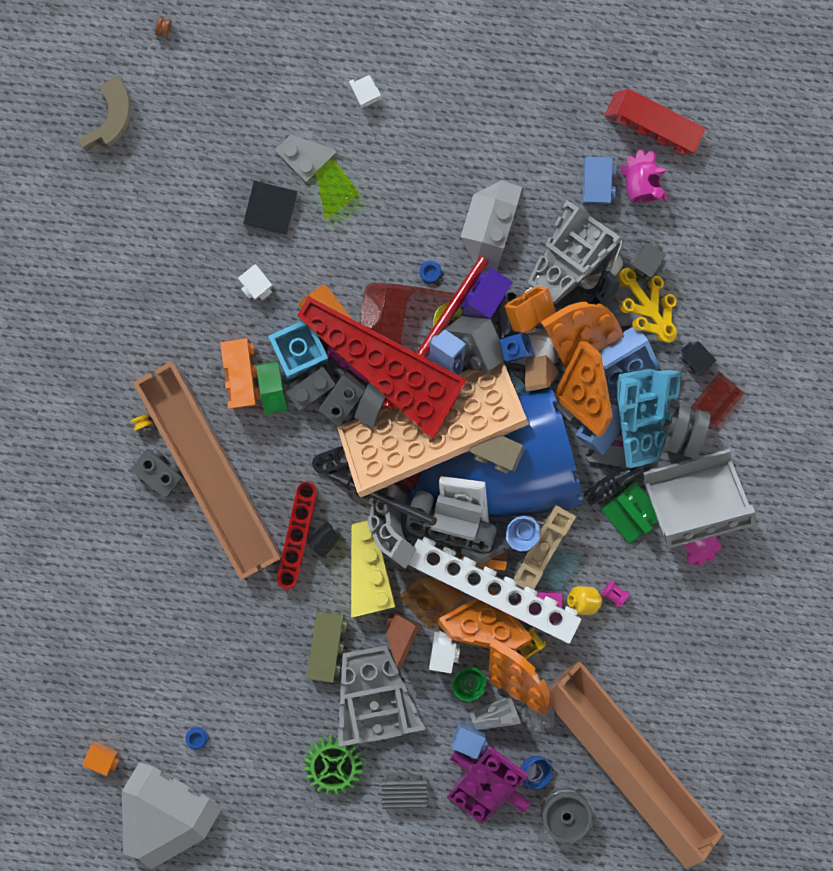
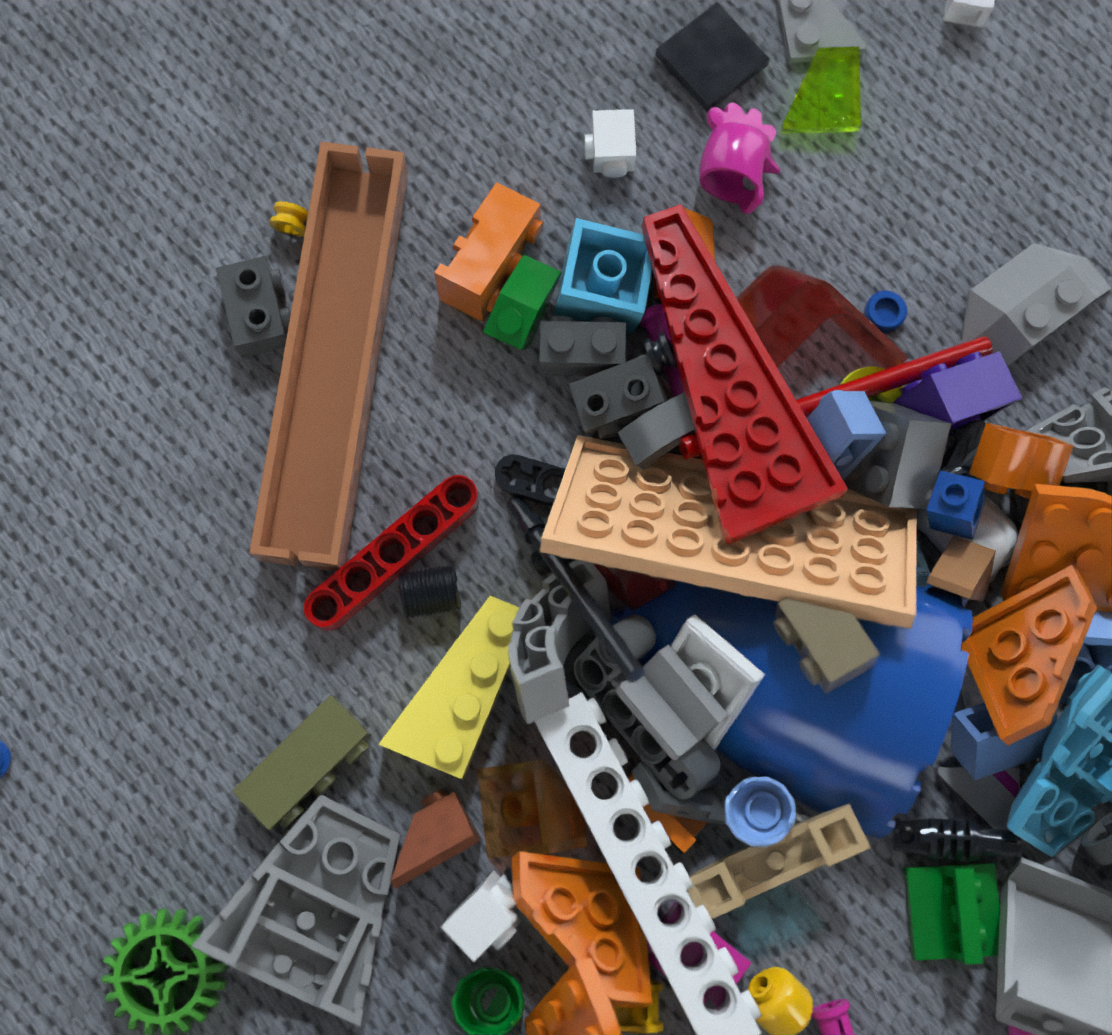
camera: 30 degrees right, 10 degrees down
(314, 248) = (734, 151): none -> dark pink piece
(346, 370) = (661, 353): none -> black bush

